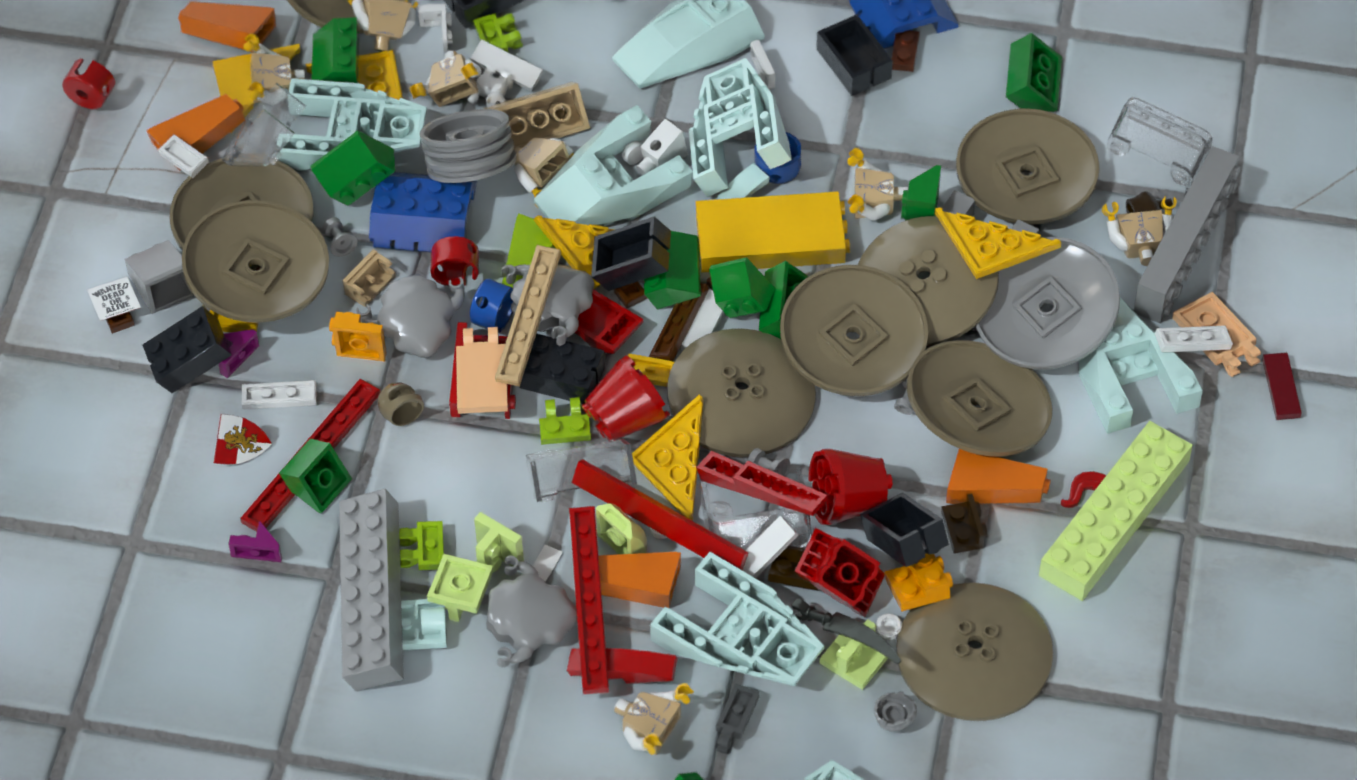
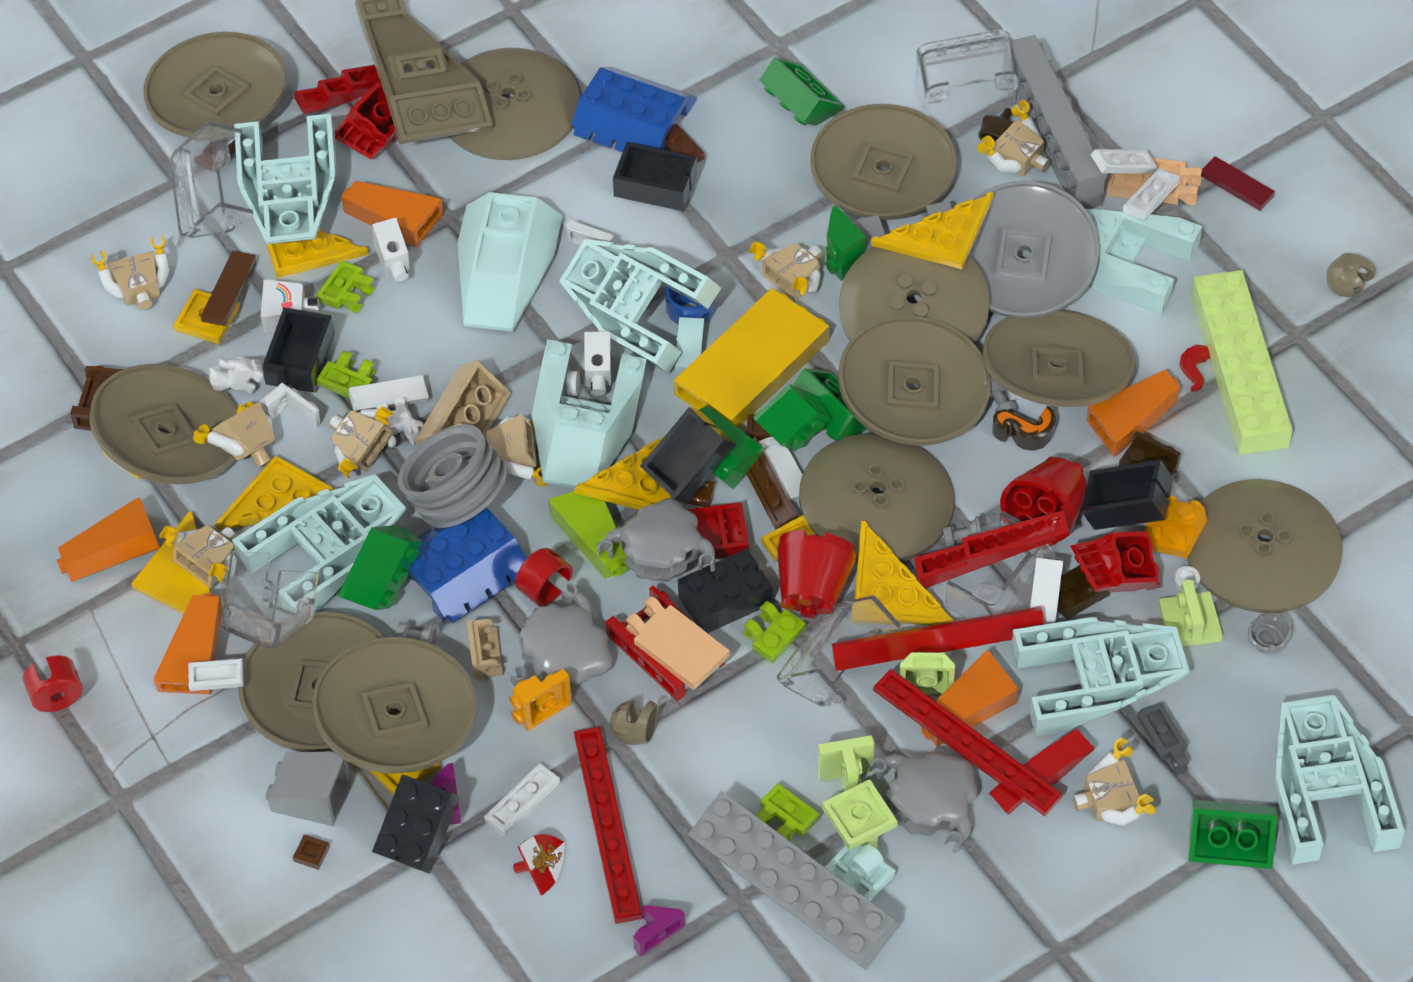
camera: 45 degrees left, 0 degrees up
(113, 298) = (289, 839): white sticker -> none
(316, 474) = (637, 832): green slope -> none
(336, 51) = (238, 492): green slope -> none
(488, 313) = (626, 591): blue piece -> none
(528, 315) = (673, 565): tan tile -> none
(546, 561) = (885, 746): white sticker -> none
(847, 627) = (1177, 598): pearl dark grey sword -> none
(897, 435) = (1023, 431): none -> dark brown animal
(1197, 298) = (1123, 161): none -> white tile
(1275, 511) = (1344, 277): none -> dark tan helmet

